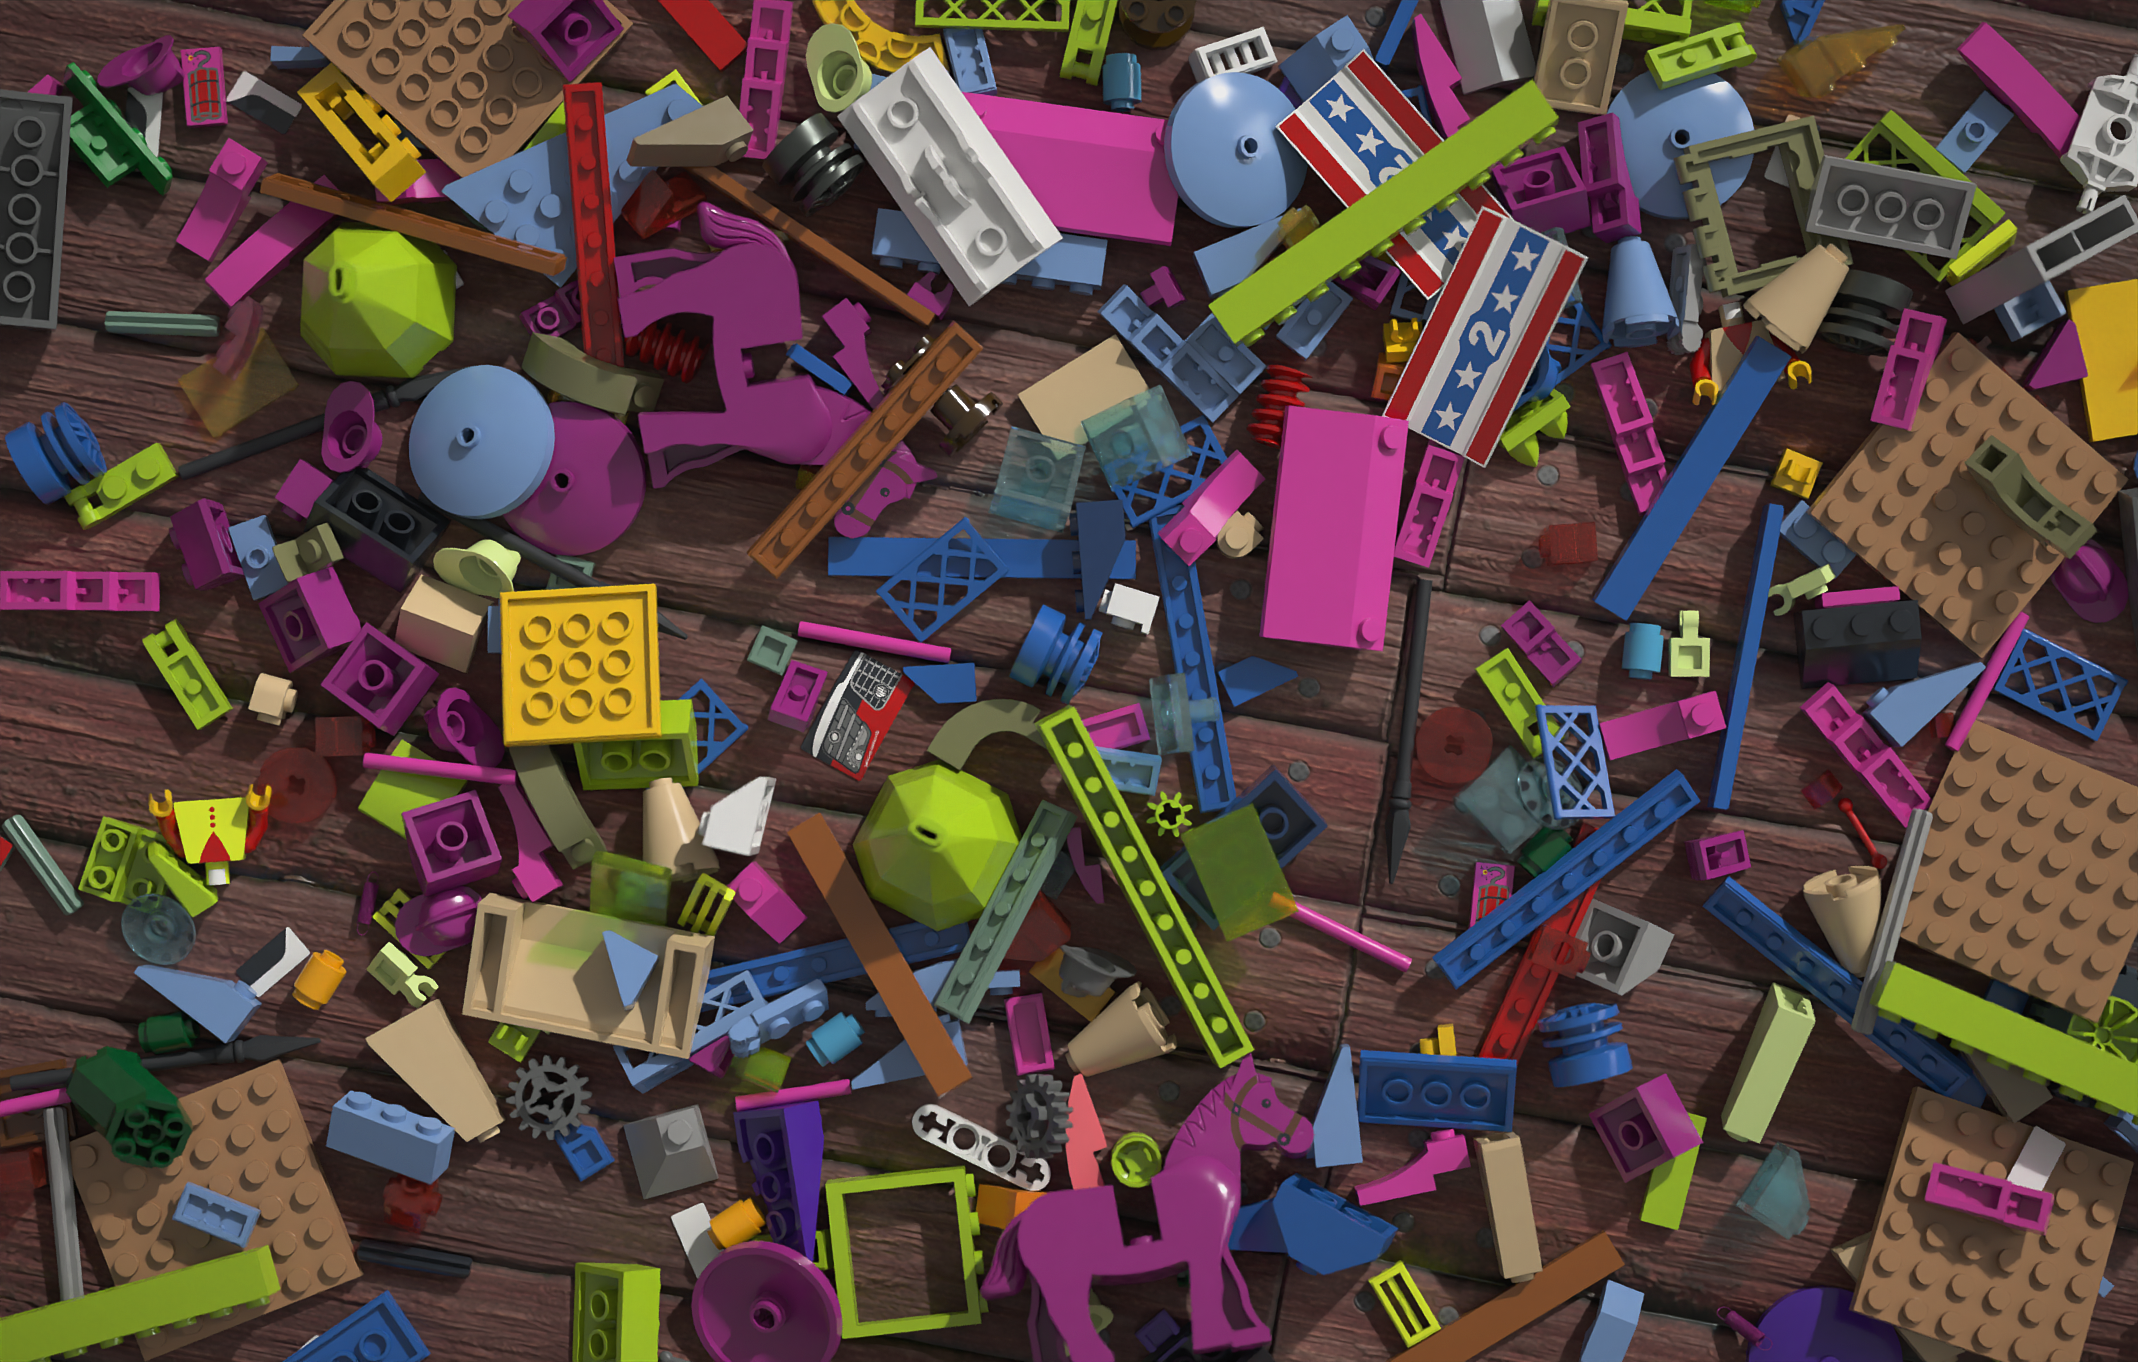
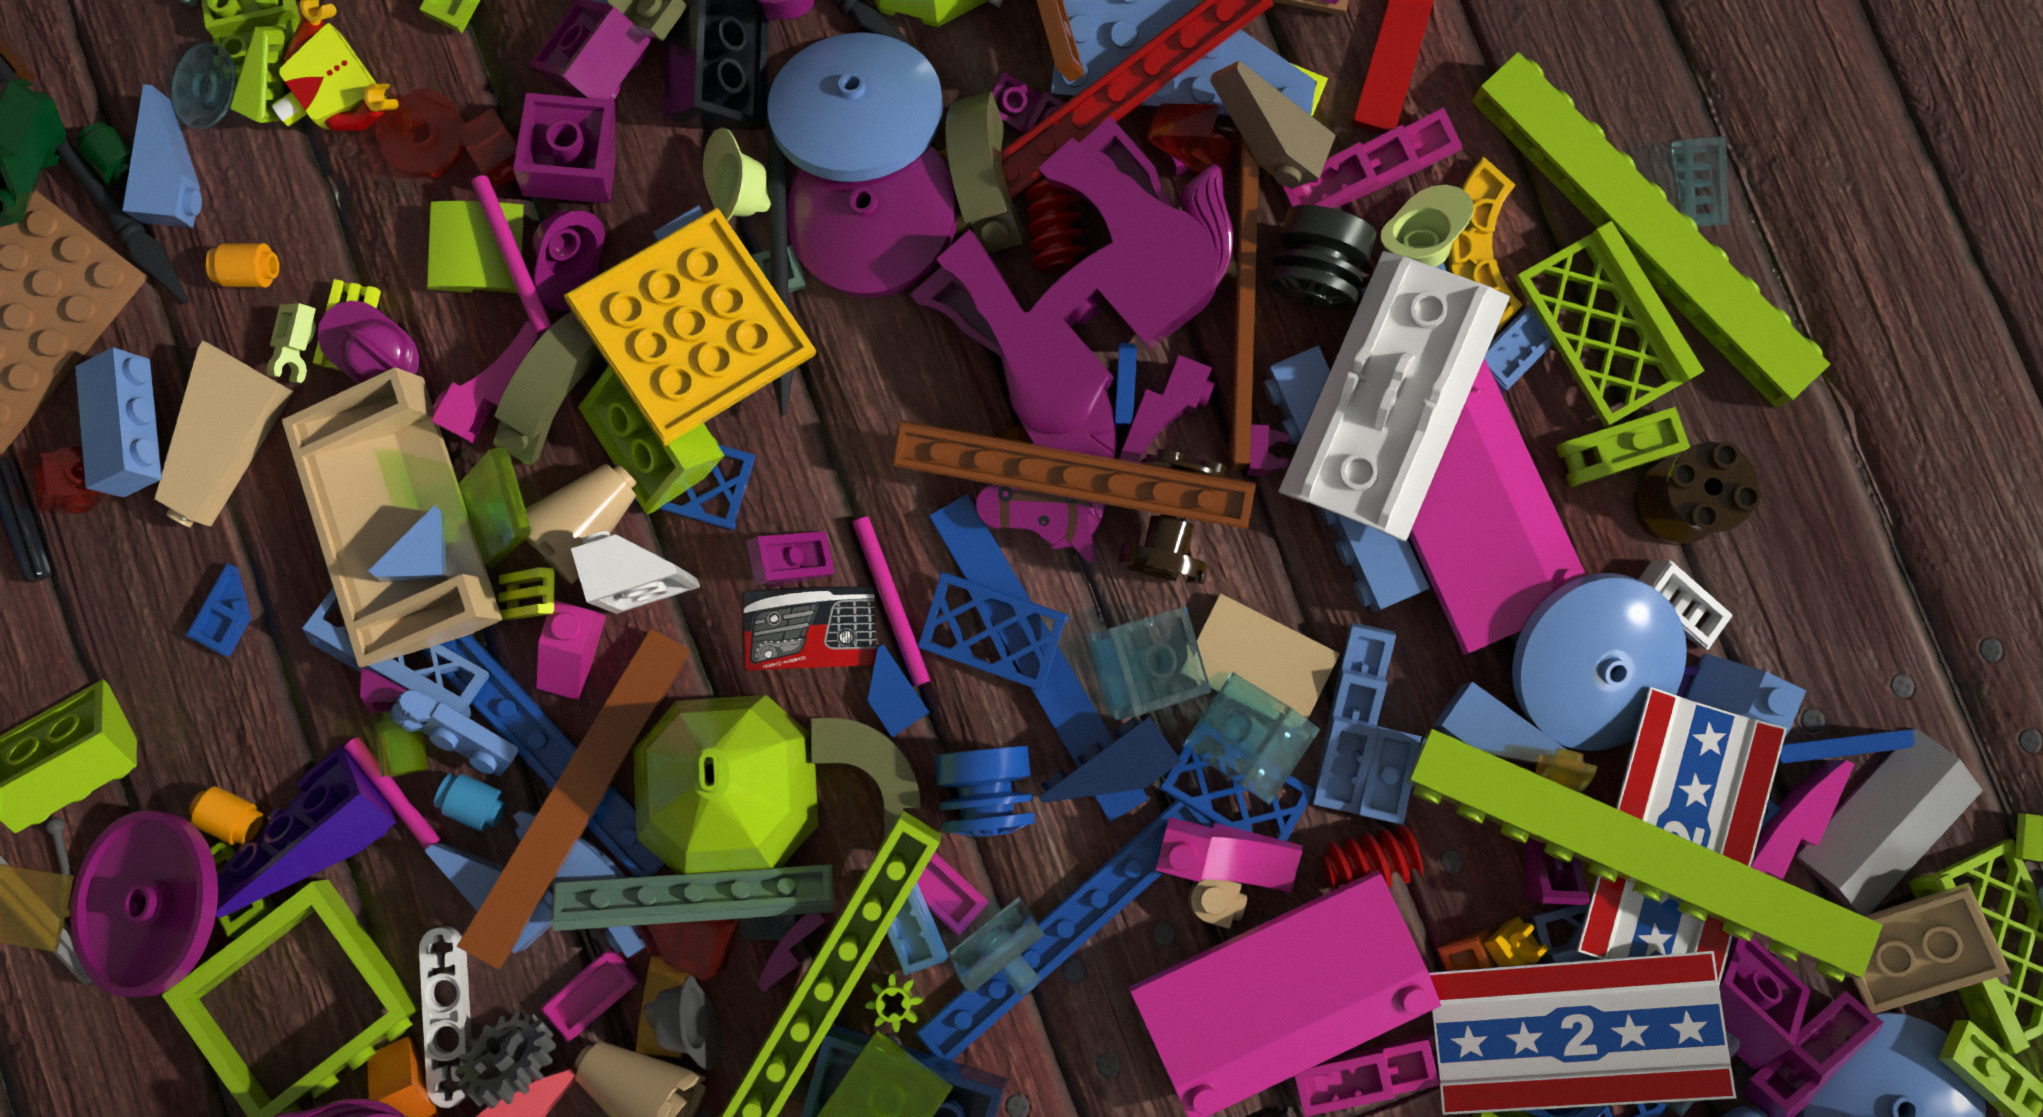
camera: 60 degrees right, 5 degrees down
(273, 698) = (490, 60): tan plate -> none
(273, 961) = (239, 214): sticker -> none
(367, 903) = (346, 268): magenta piece -> none
(442, 623) = (660, 175): tan slope -> none
(450, 843) = (444, 307): magenta slope -> none
(514, 1039) = (287, 487): lime tile -> none
(556, 1114) = (234, 566): dark grey gear -> none
(671, 1151) = (268, 706): light grey slope -> none
(692, 1230) = (201, 774): white sticker -> none
(772, 650) = (823, 507): sand green tile -> none
(1121, 82) = (1591, 508): dark azure brick -> none
(1129, 607) = (1078, 834): white brick -> none
(1165, 289) = (1414, 675): magenta tile -> none
(1253, 678) = (1082, 1002): blue tile -> none
(1313, 321) = (1476, 844): medium blue plate -> none

